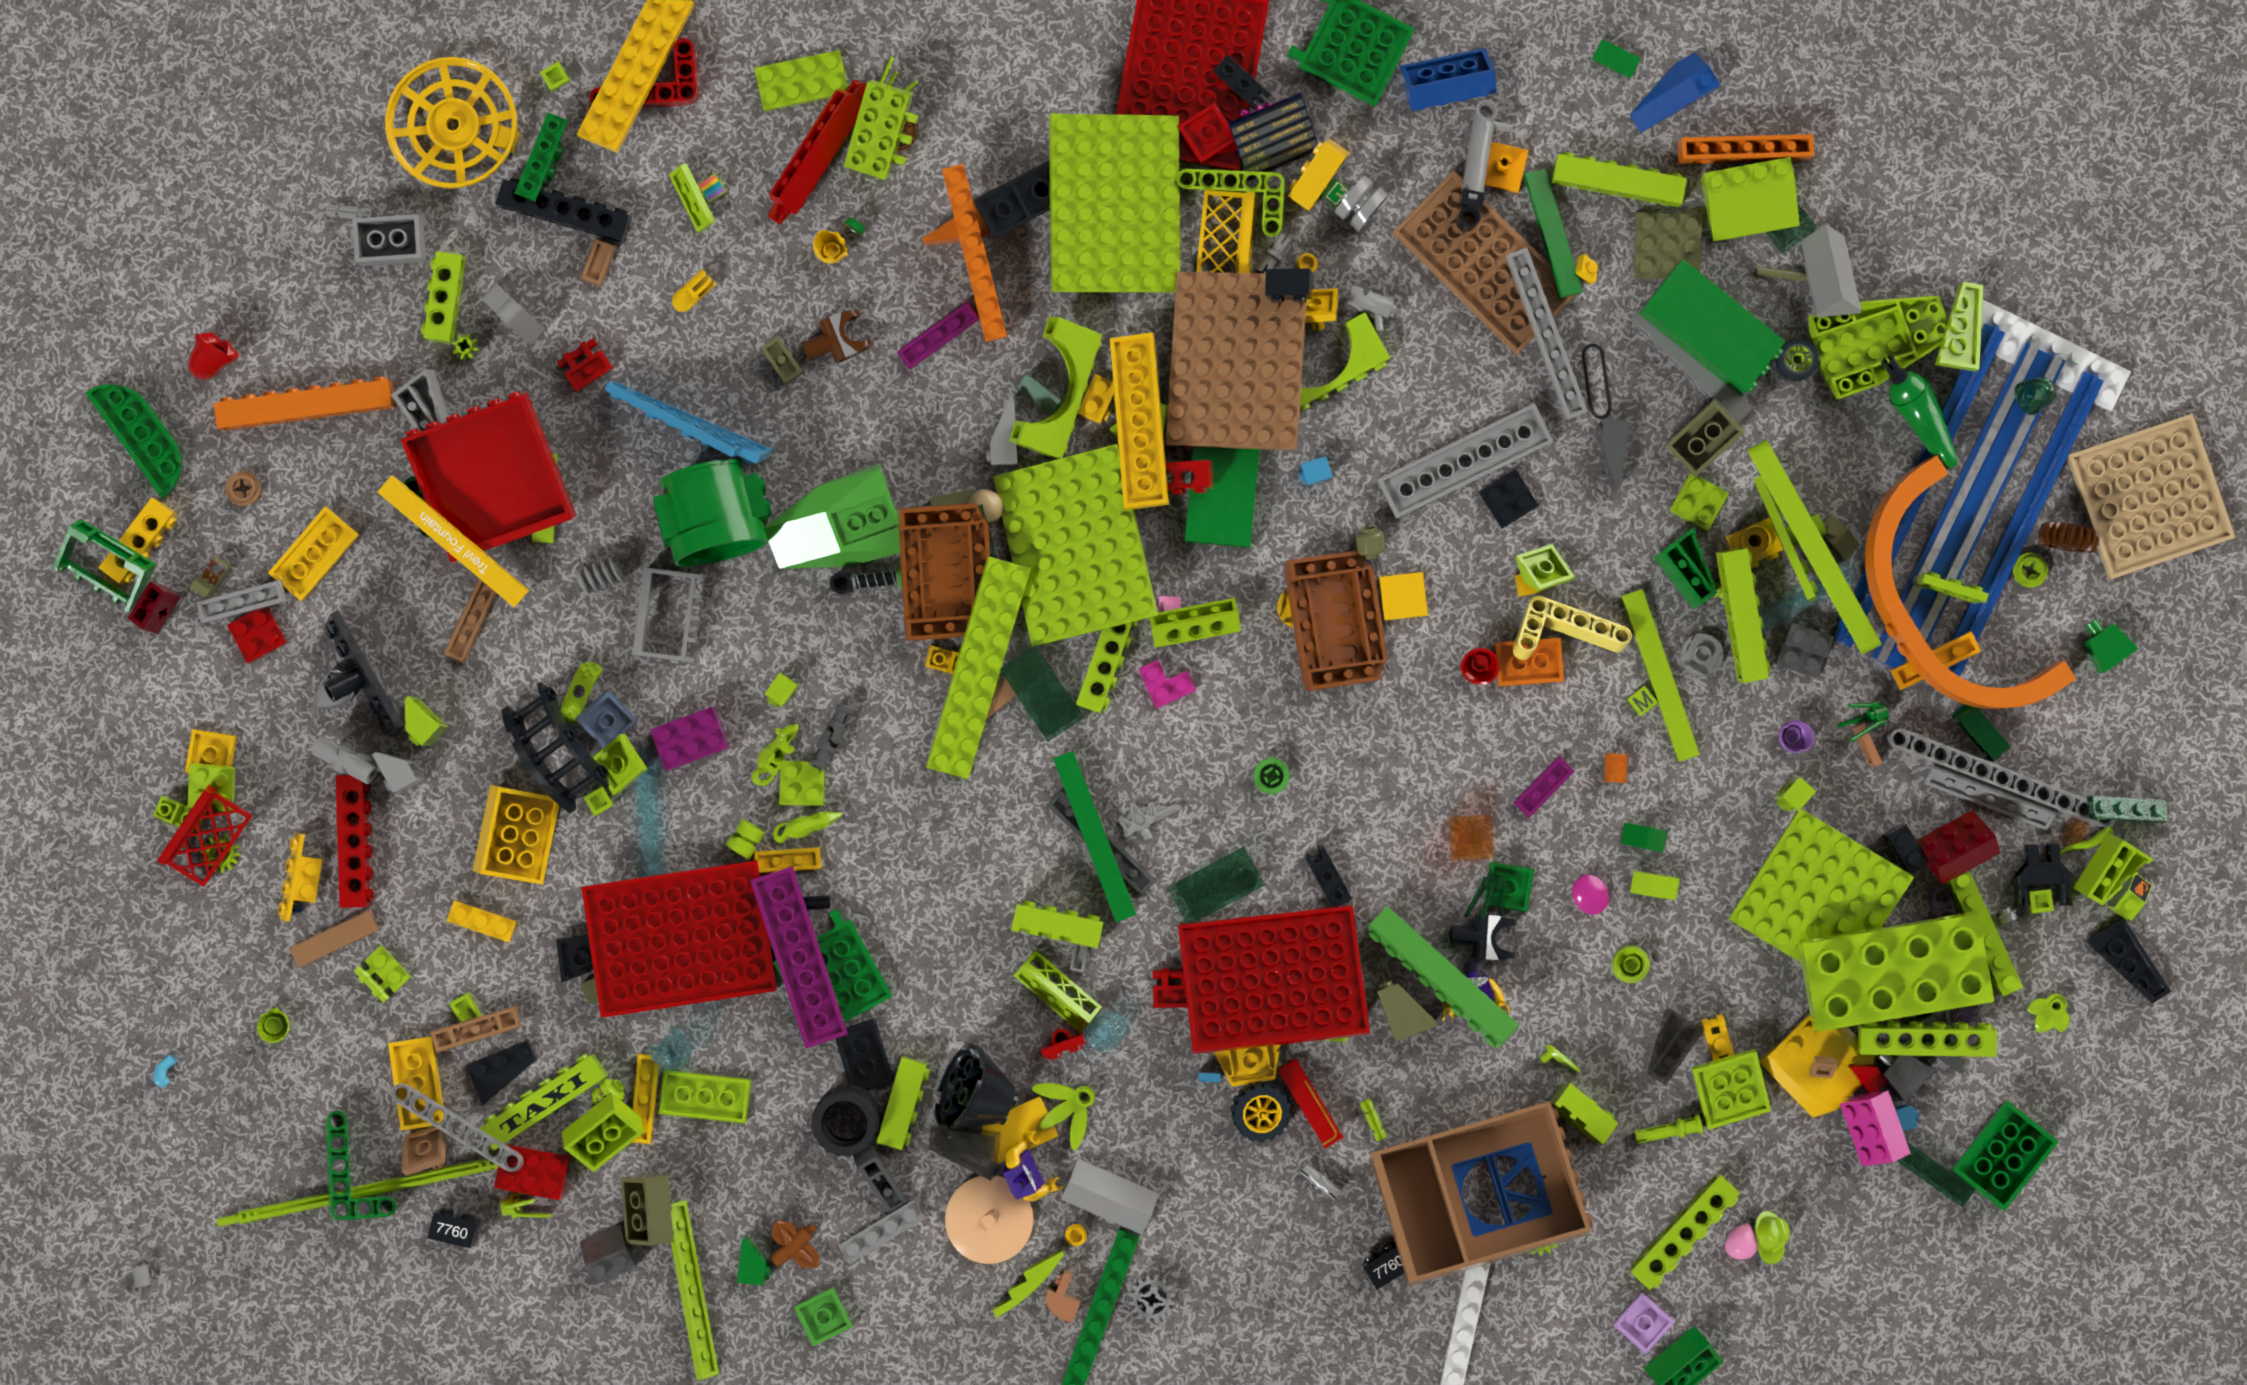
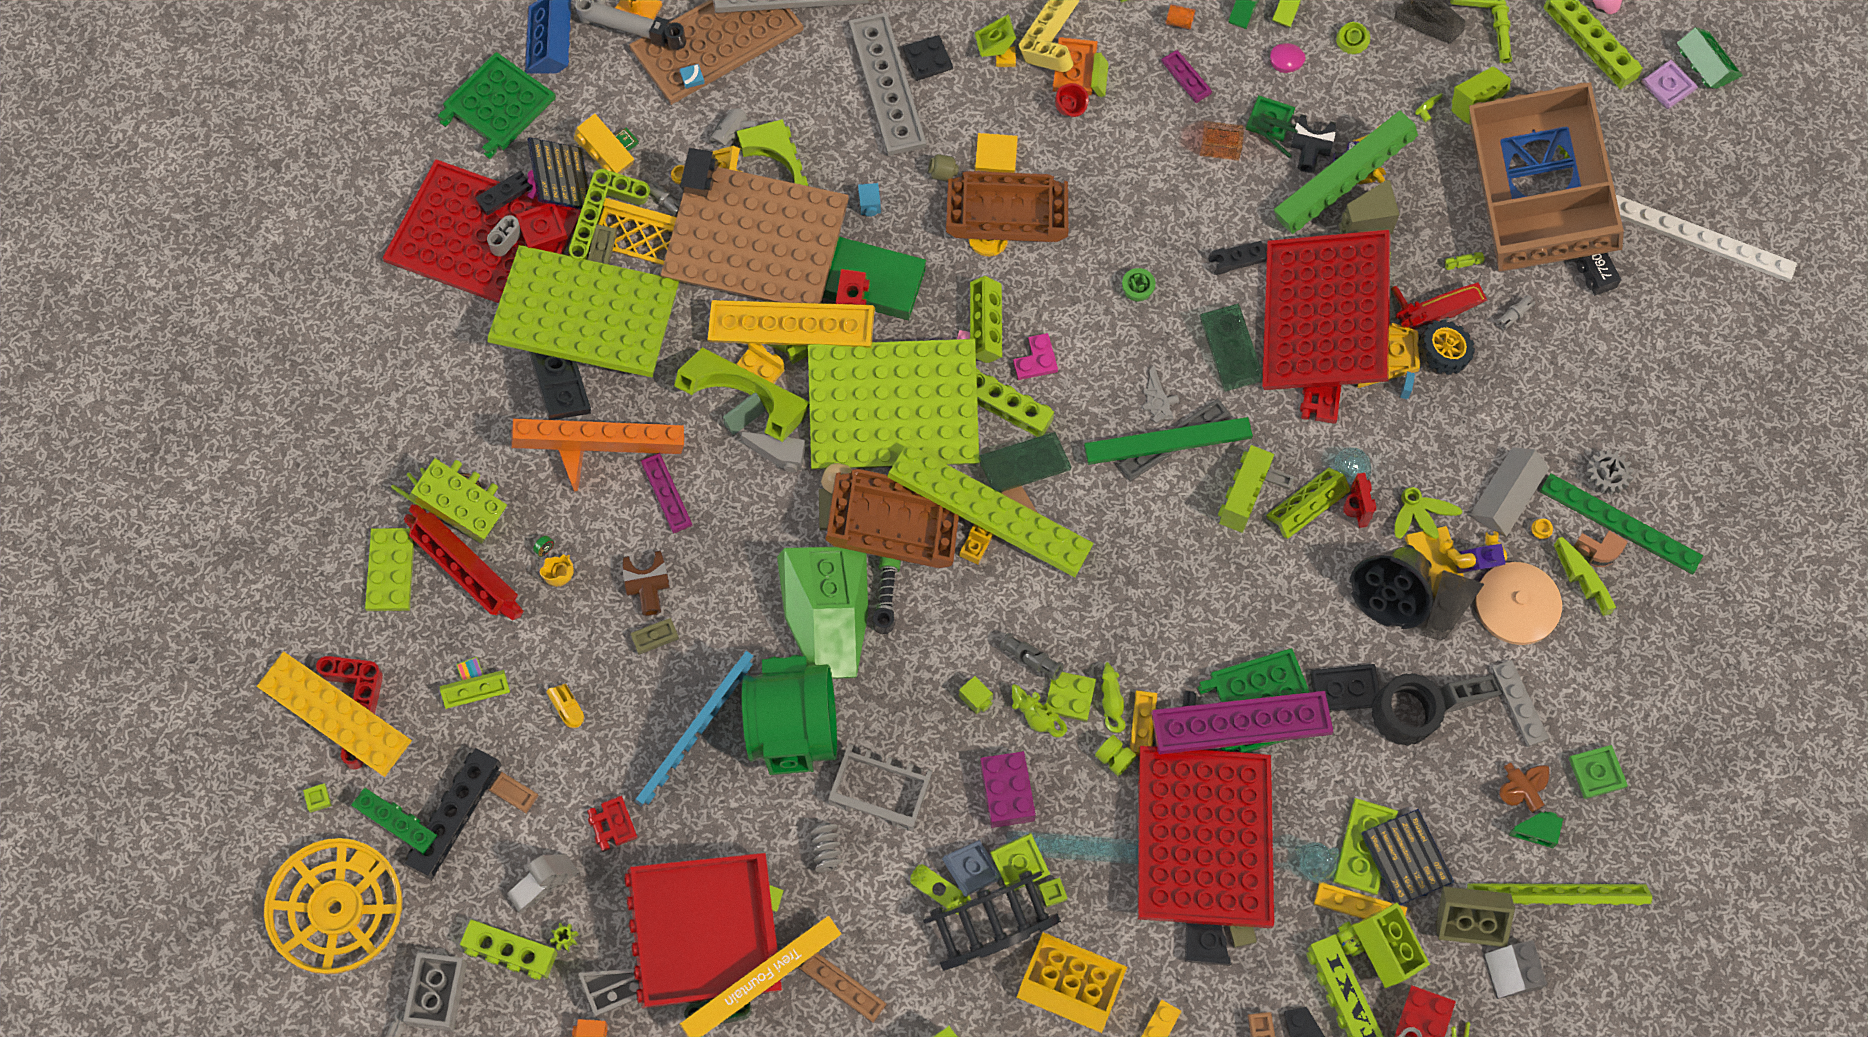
camera: 75 degrees left, 20 degrees down
(699, 1138) = (1407, 857): none -> piece
(902, 1103) = (1394, 656): lime brick -> none
(1194, 94) = (507, 233): none -> light grey beam
(1201, 202) = (602, 244): none -> olive plate
(1298, 1065) = (1407, 309): none -> red piece
(1358, 201) = (639, 115): light grey wheel -> none
(1425, 248) = (692, 76): none -> dark azure tile
(1522, 691) = (1099, 74): none -> lime tile

